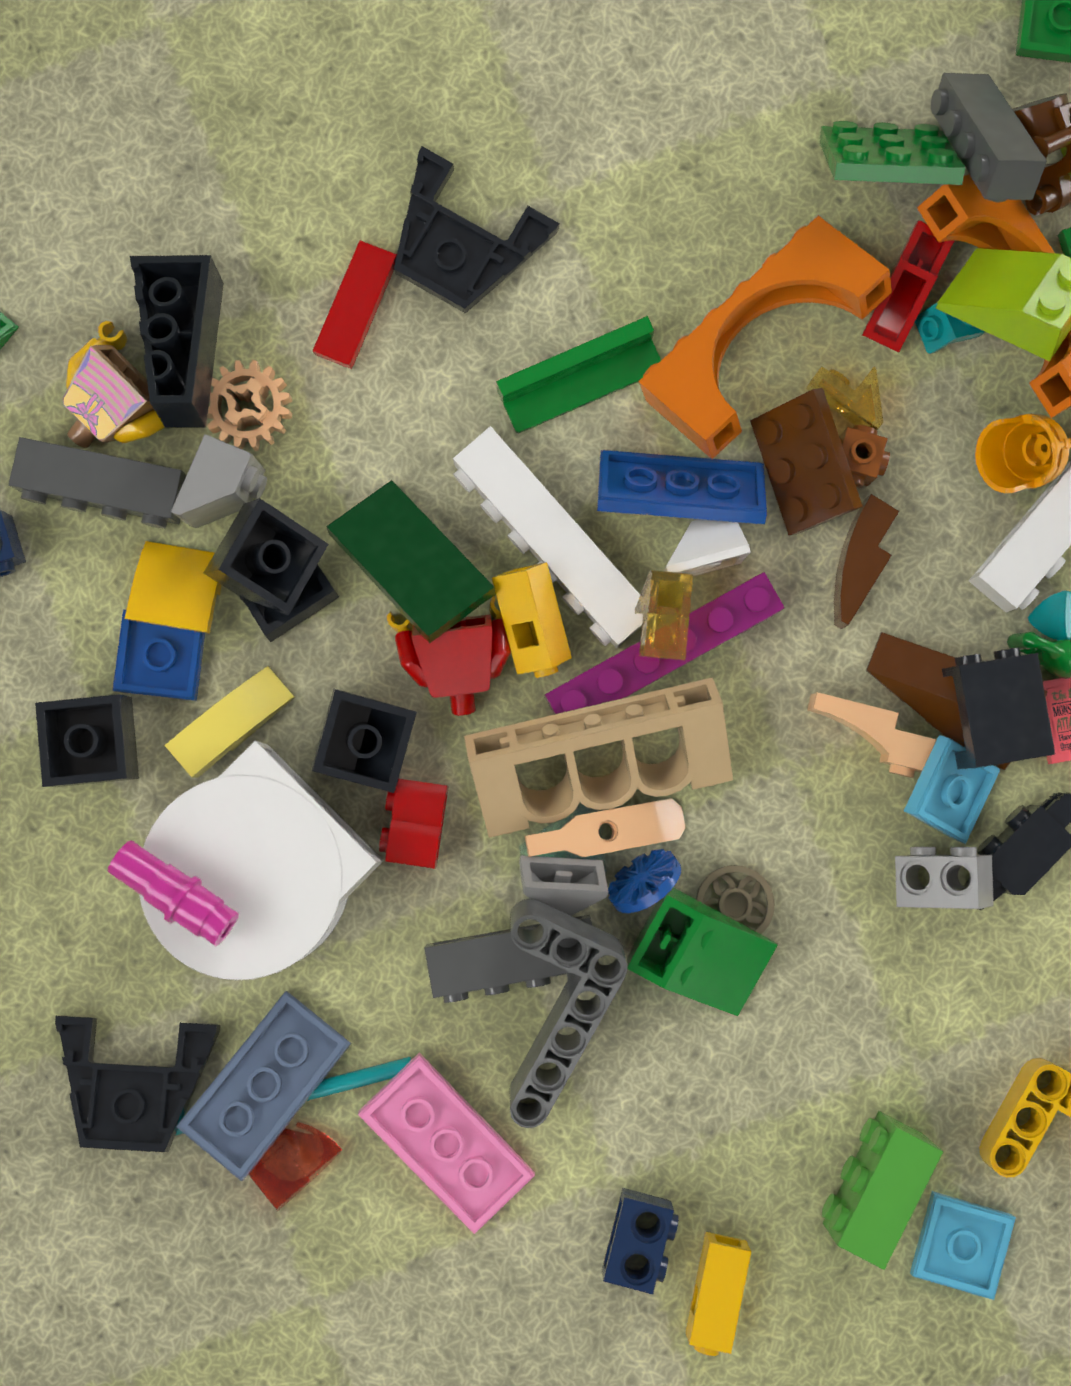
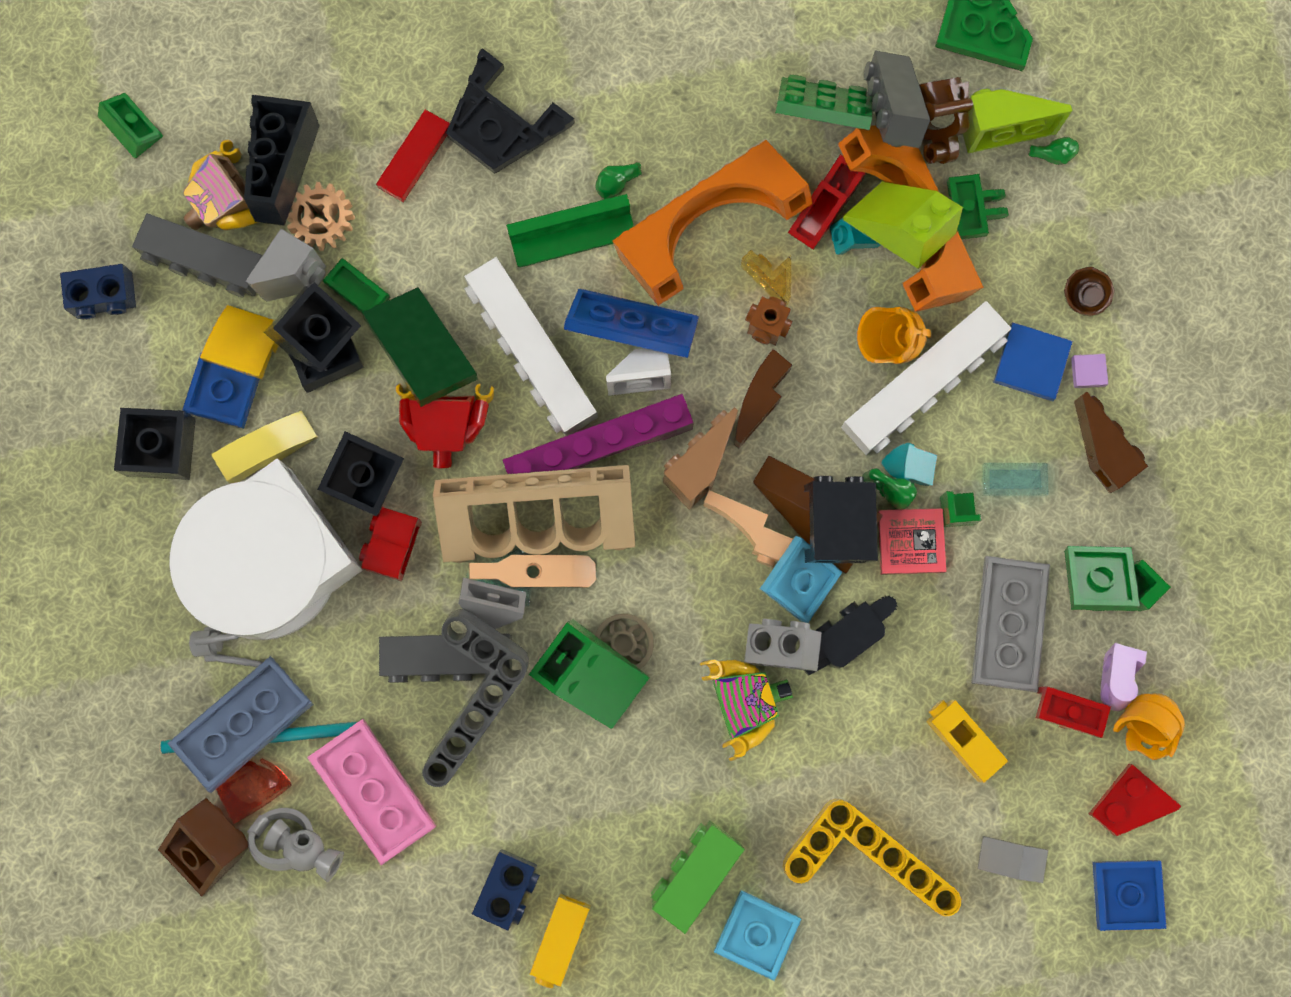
camera: 10 degrees right, 5 degrees down
(131, 1103) = (139, 722): black wing -> none
(173, 893) = (194, 559): dark pink piece -> none
(202, 989) = (210, 641): none -> light grey plant
(246, 1246) = (203, 846): none -> reddish brown slope
(309, 492) = (355, 286): none -> green tile
(371, 1232) = (301, 849): none -> light grey piece
(532, 619) = (503, 403): yellow brick -> none
(623, 296) = (613, 179): none -> green animal
(644, 881) = (555, 613): blue wheel -> none
(665, 613) = (599, 411): clear yellow slope -> none
(805, 662) = (695, 472): none -> medium nougat slope
(806, 462) = (728, 318): reddish brown plate -> none
(906, 958) = (746, 702): none -> torso

